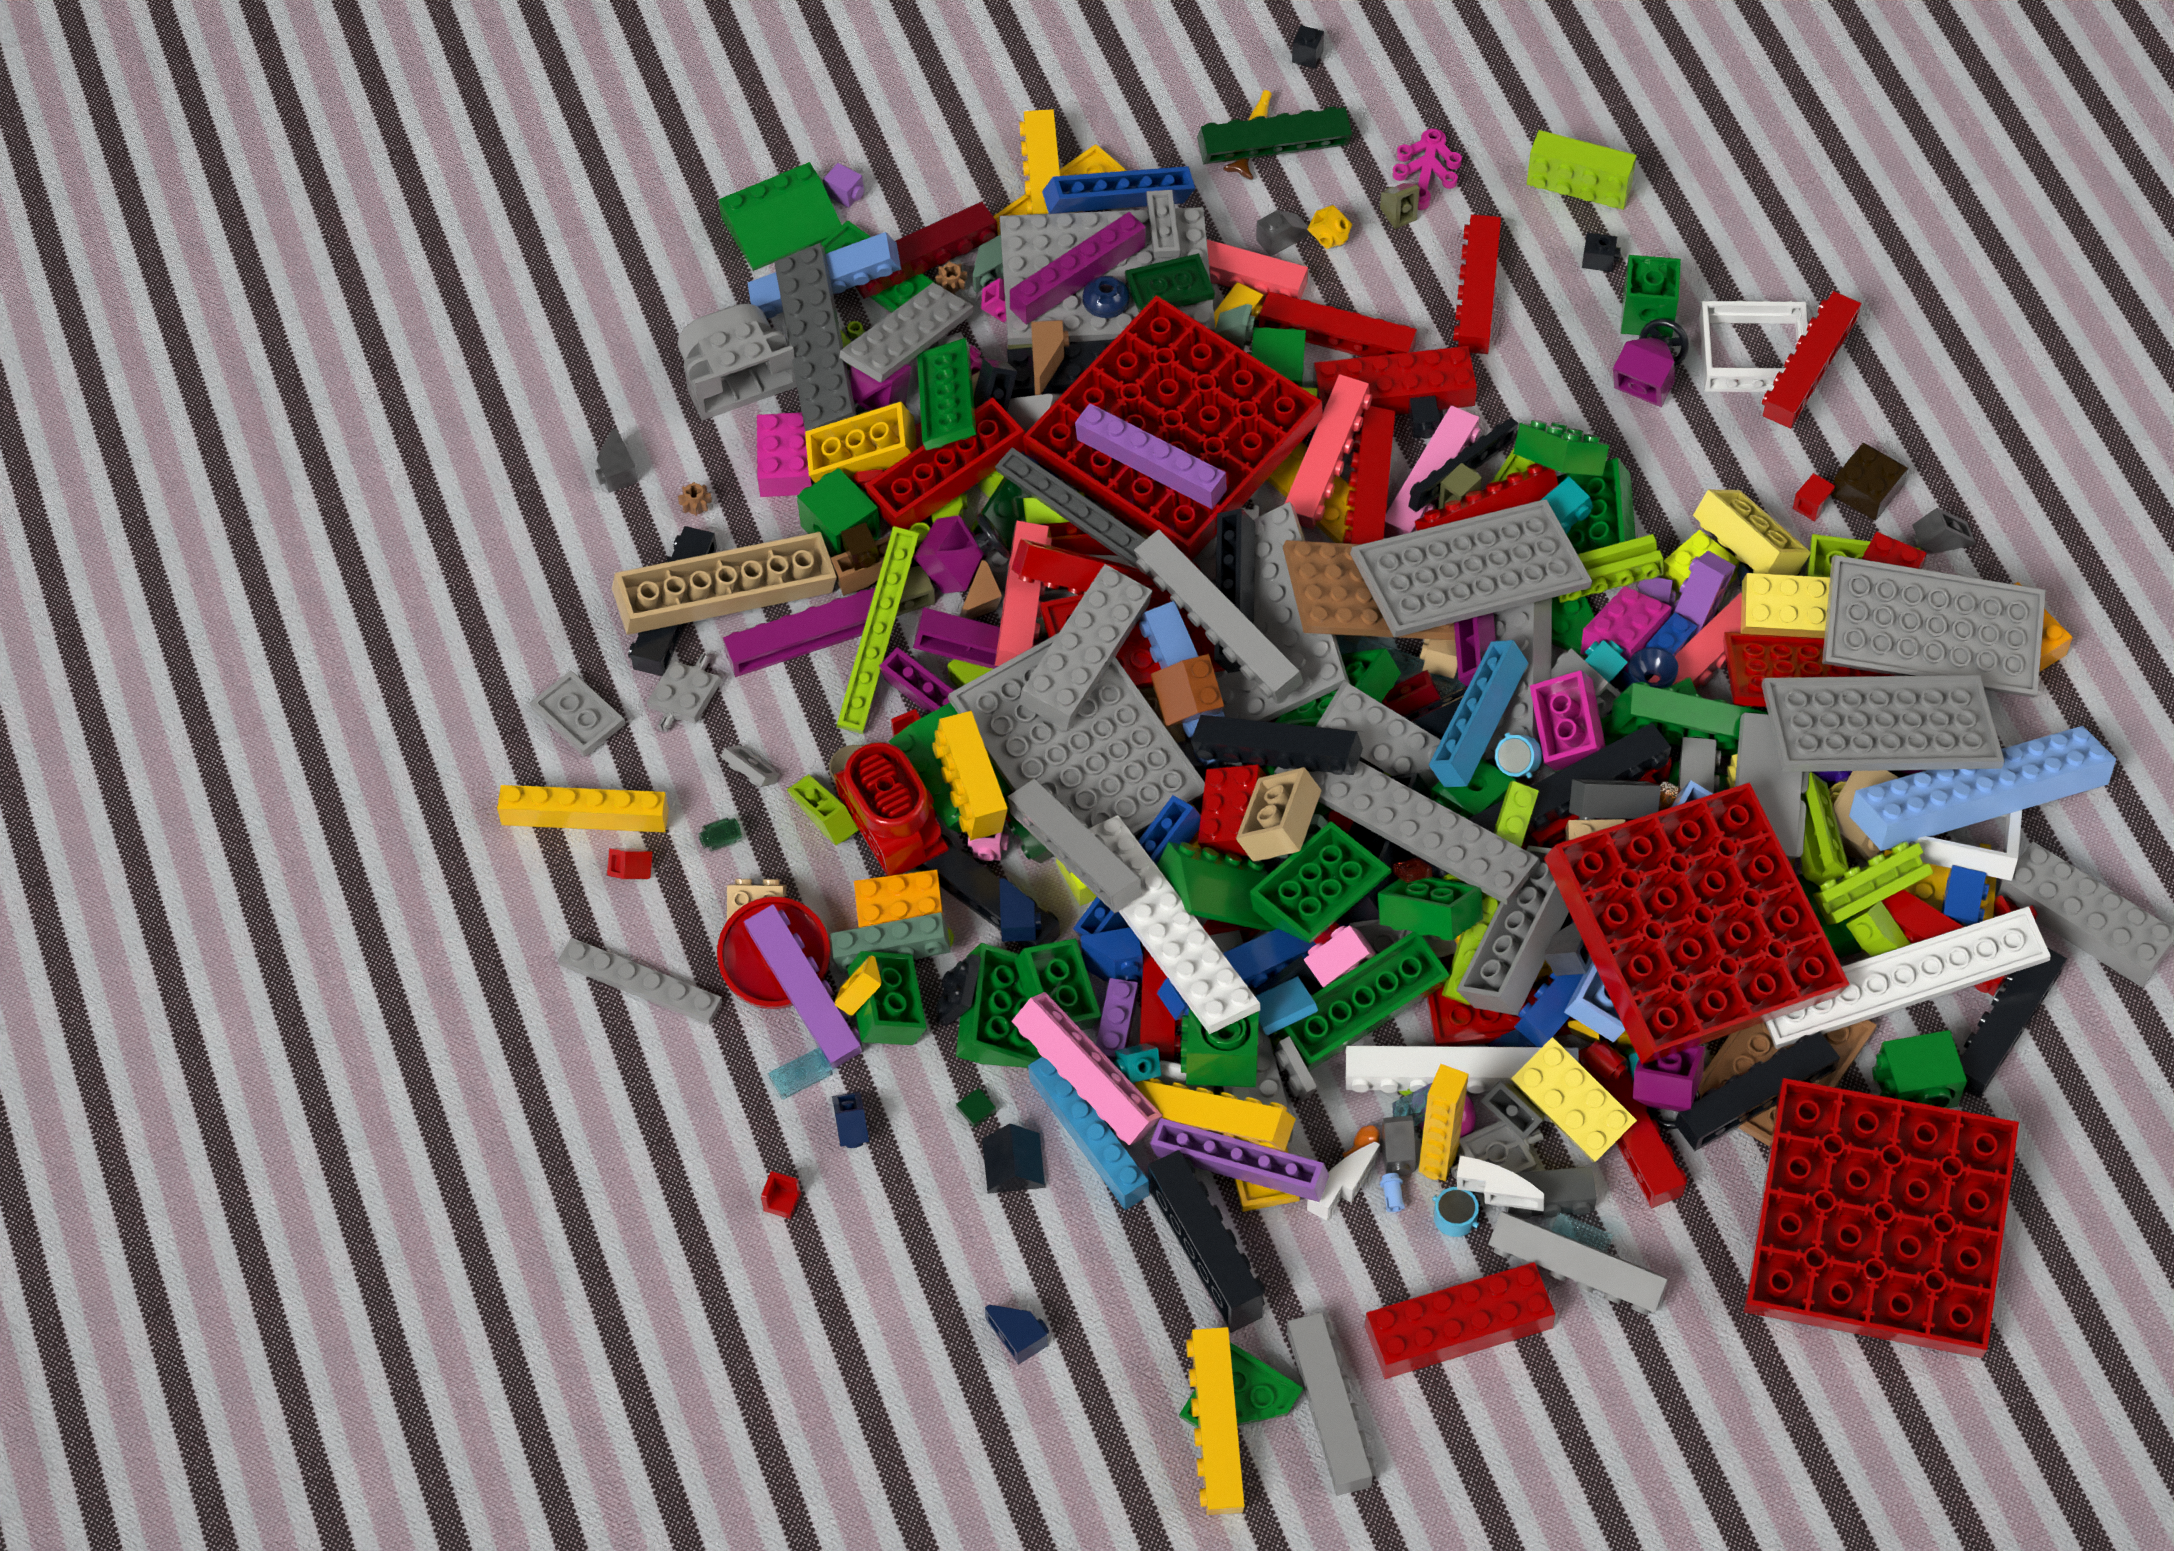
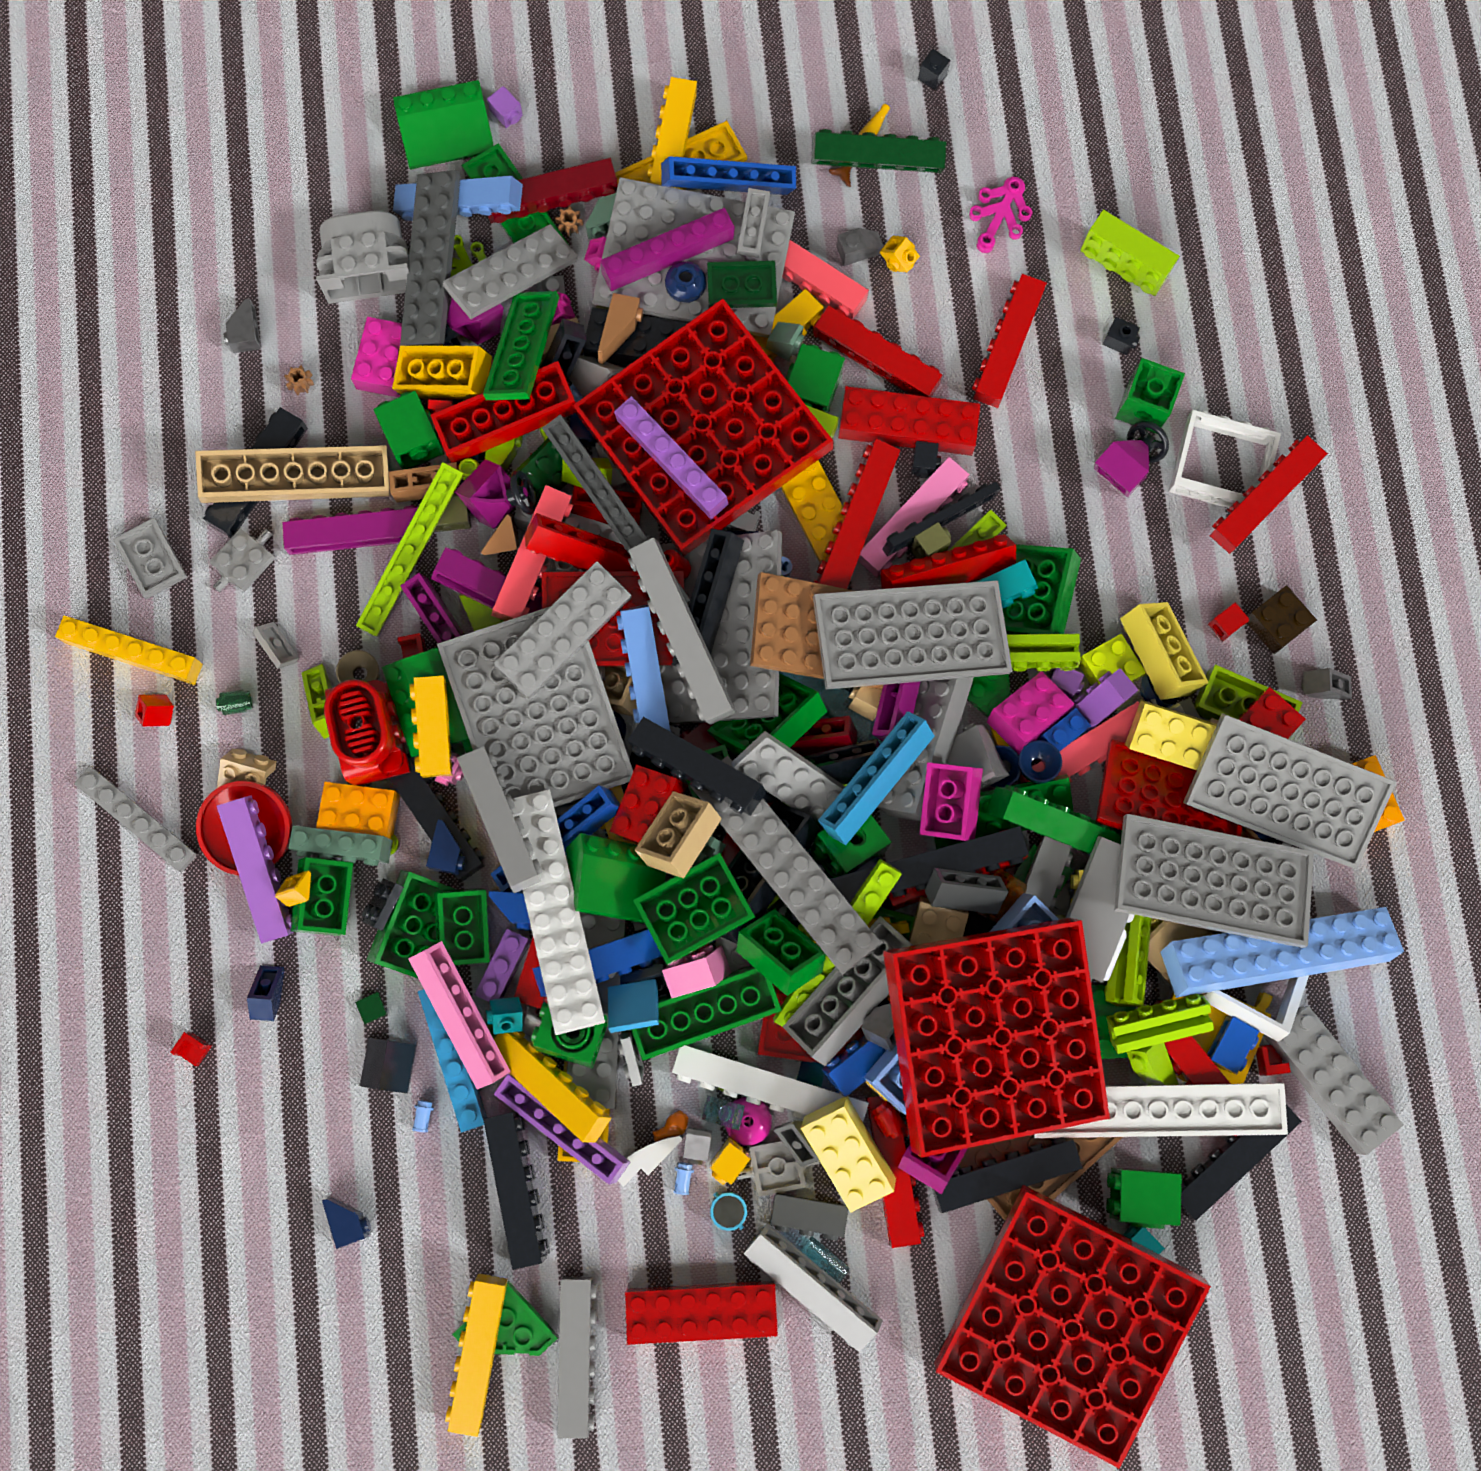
camera: 10 degrees right, 20 degrees up
(800, 1073) = (237, 939): clear light blue plate -> none
(860, 546) = (412, 471): dark brown brick -> none
(1071, 1202) = (422, 1116): none -> light blue pin
(1187, 690) = (638, 691): dark orange slope -> none
(1328, 448) = (829, 477): coral brick -> none
(1400, 204) = (966, 246): olive slope -> none
(1412, 870) = (776, 912): clear red tile -> none
(1498, 1185) = (765, 1209): white slope -> none
(1518, 755) = (900, 821): piece -> none
(1561, 448) = (1027, 528): green brick -> none
(1605, 658) = (1002, 744): teal brick -> none

